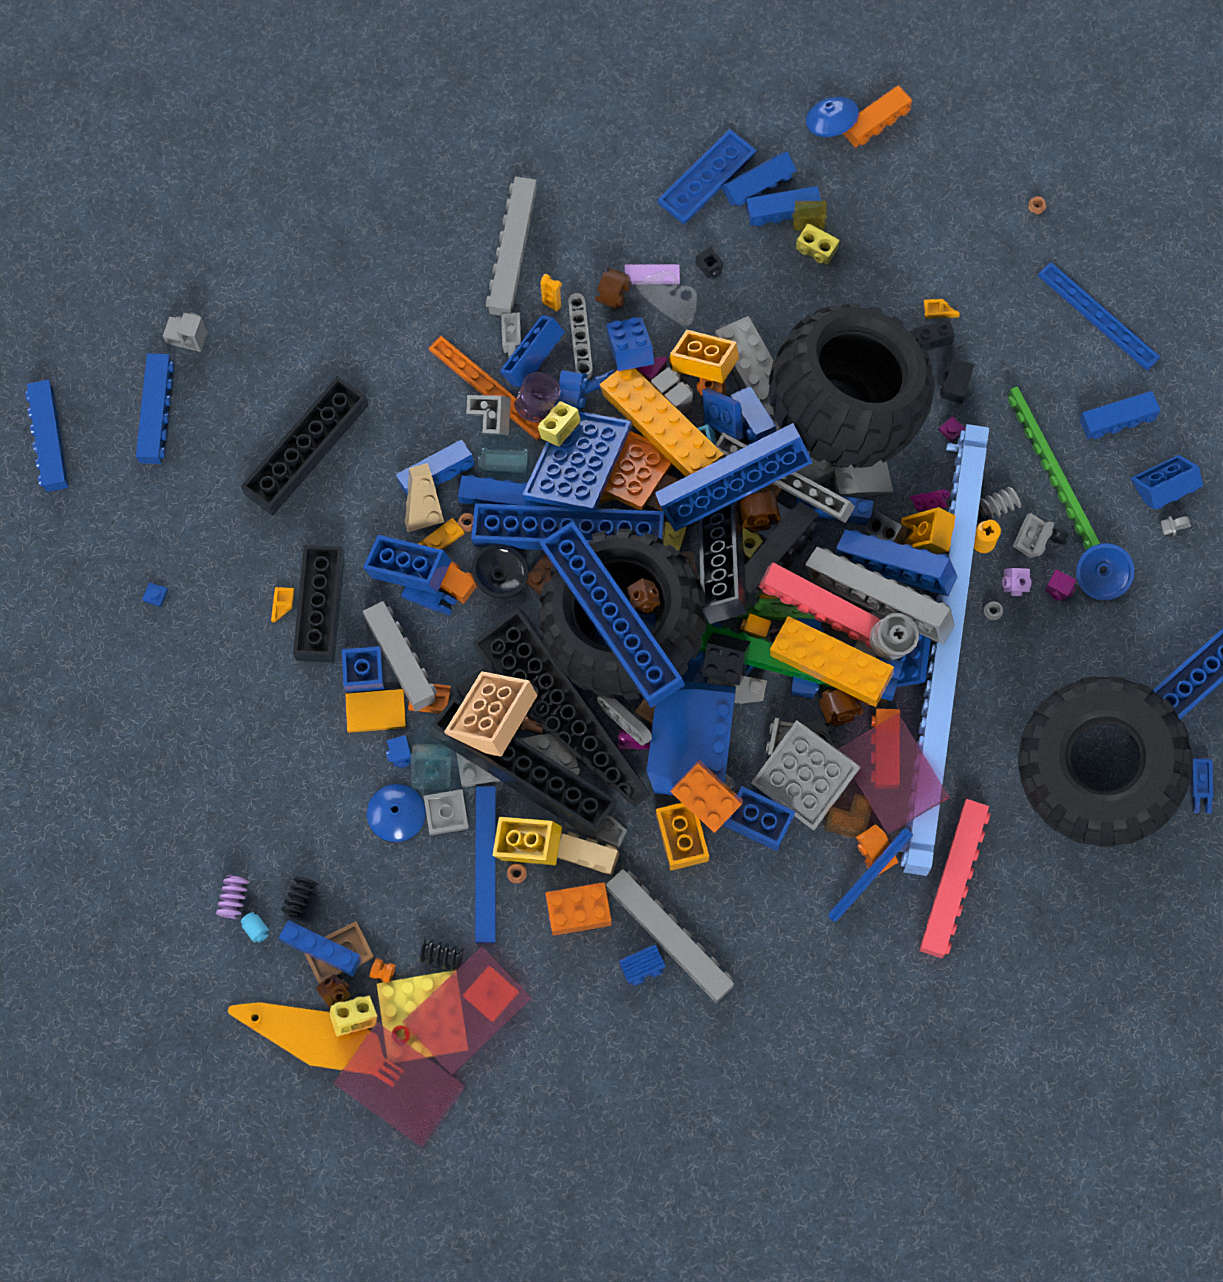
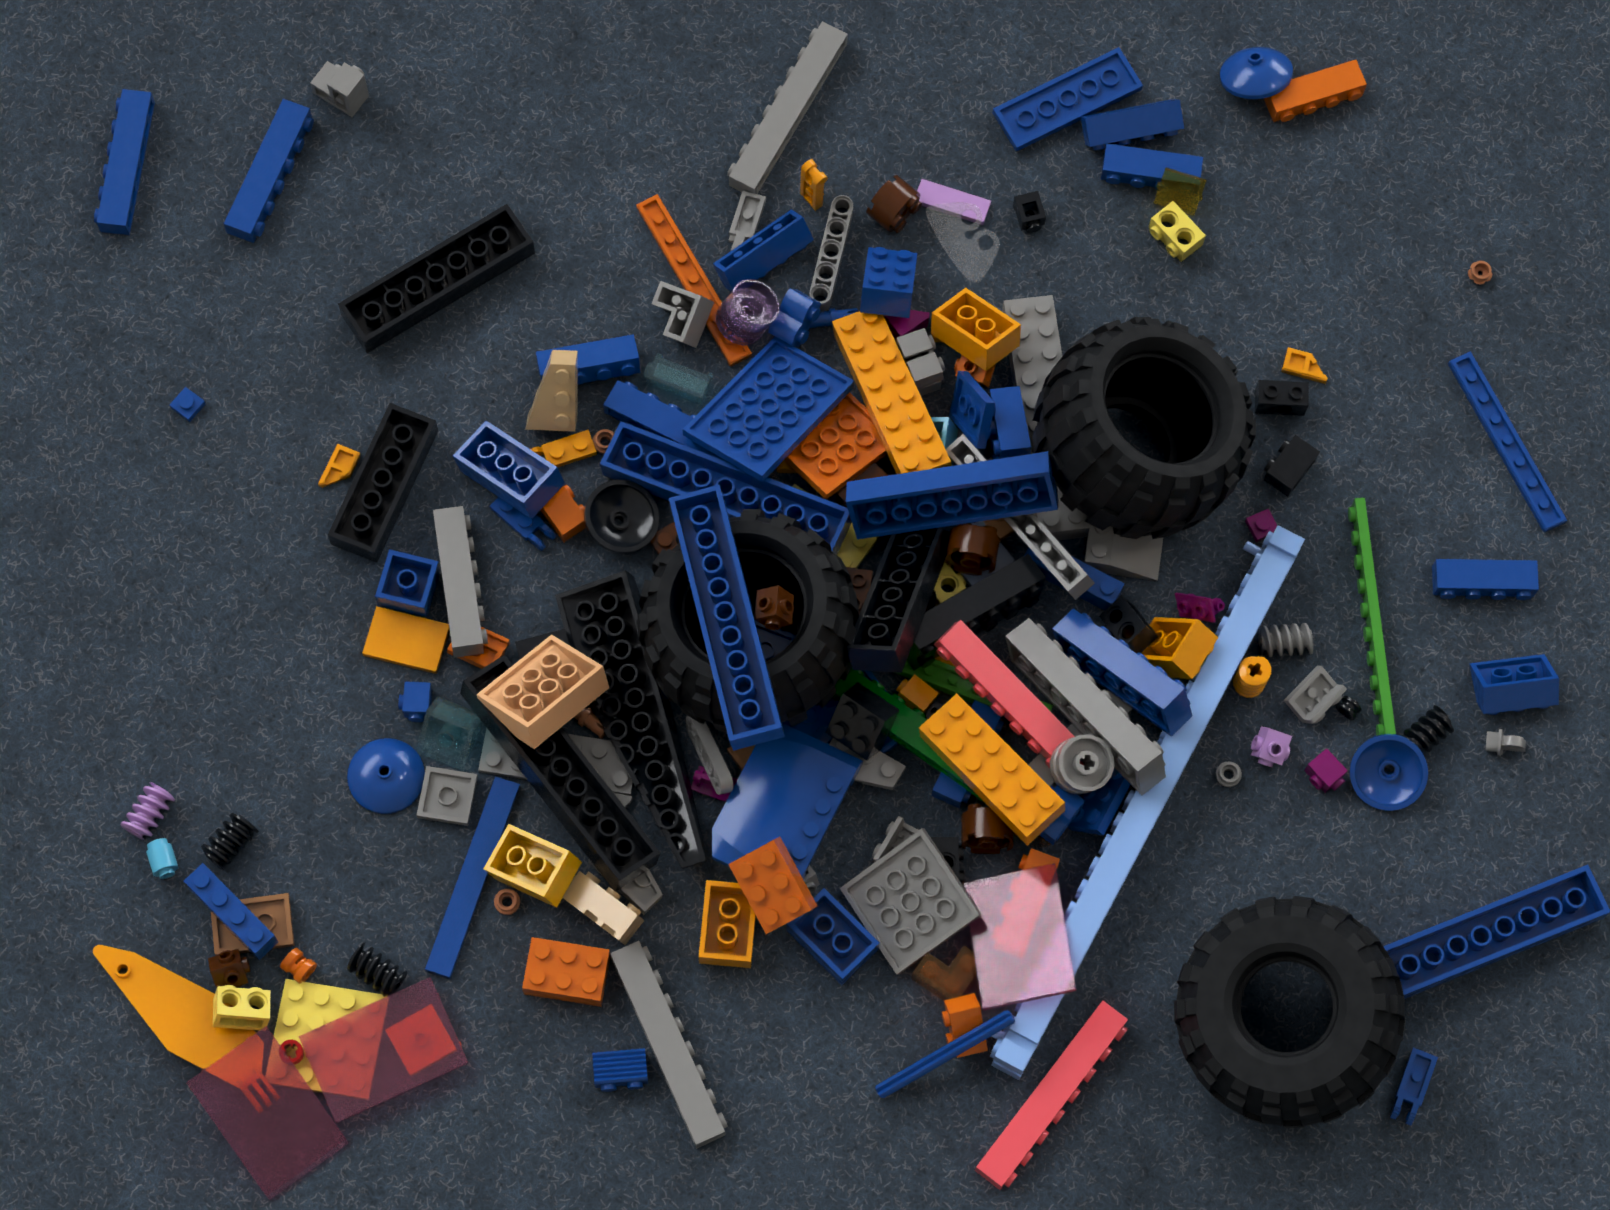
camera: 15 degrees right, 0 degrees up
(559, 423) = (762, 354): light yellow brick -> none
(1120, 531) = (1429, 728): none -> black piece

